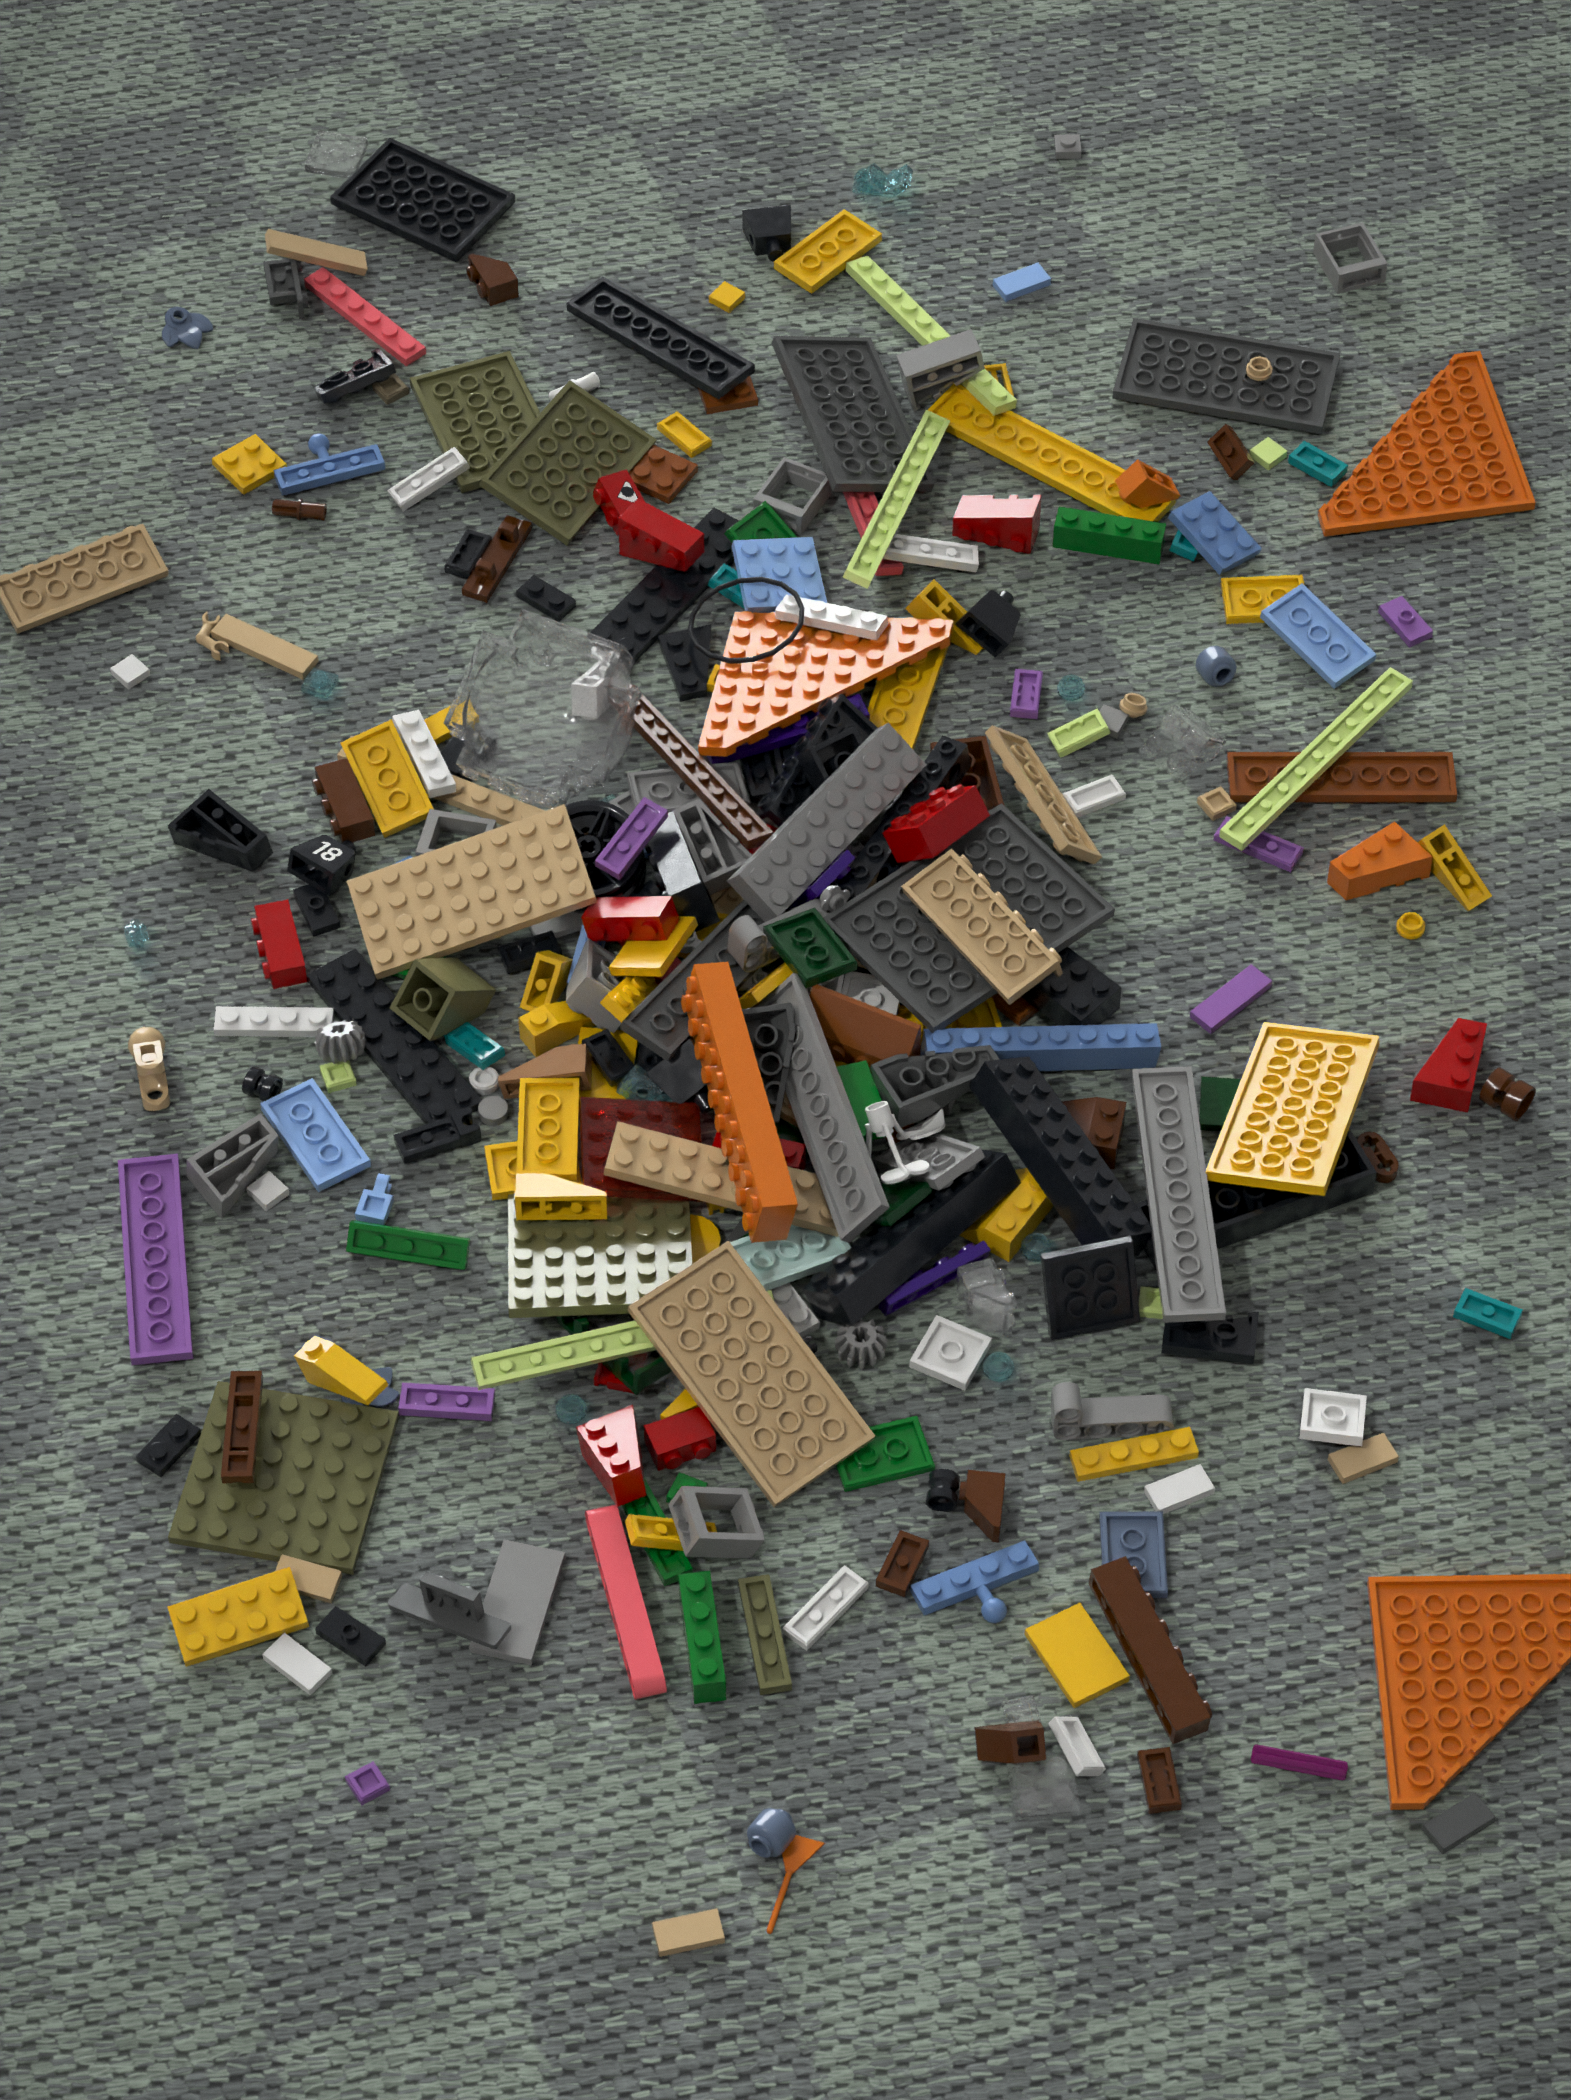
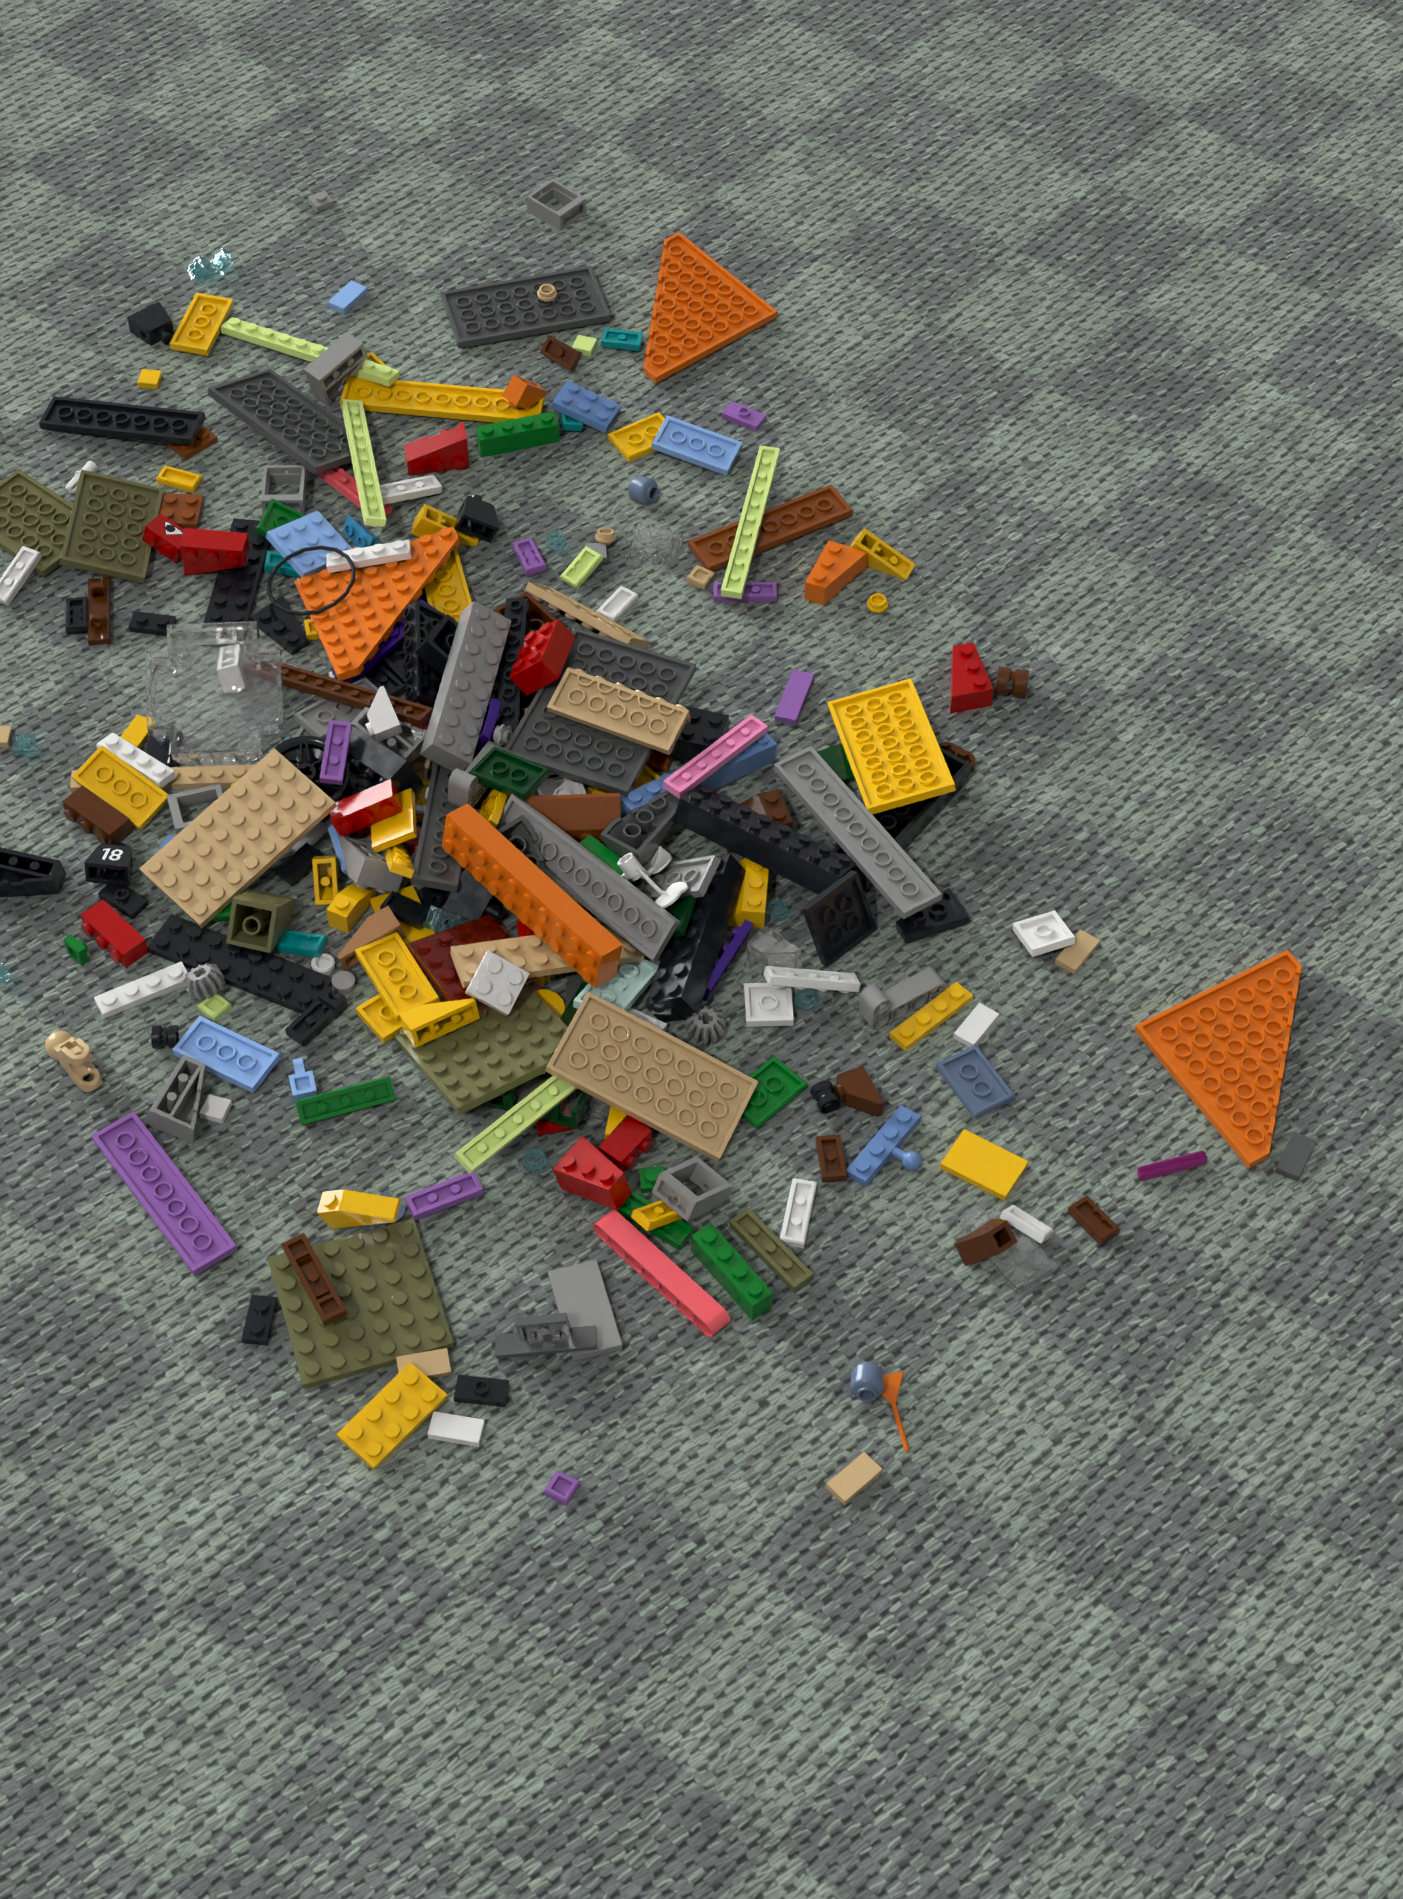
camera: 30 degrees left, 0 degrees up
(231, 944) = (76, 949): none -> green plate
(642, 1186) = (497, 983): none -> white plate
(707, 818) = (382, 717): none -> white slope
(847, 592) = (359, 533): none -> dark azure hinge
(1015, 1345) = (813, 979): none -> white plate
(1067, 1030) = (715, 756): none -> bright pink plate
(1150, 1303) = (880, 912): yellowish green tile -> none
(1150, 1650) = (1032, 1137): reddish brown brick -> none
(1487, 1313) = (1092, 825): teal plate -> none

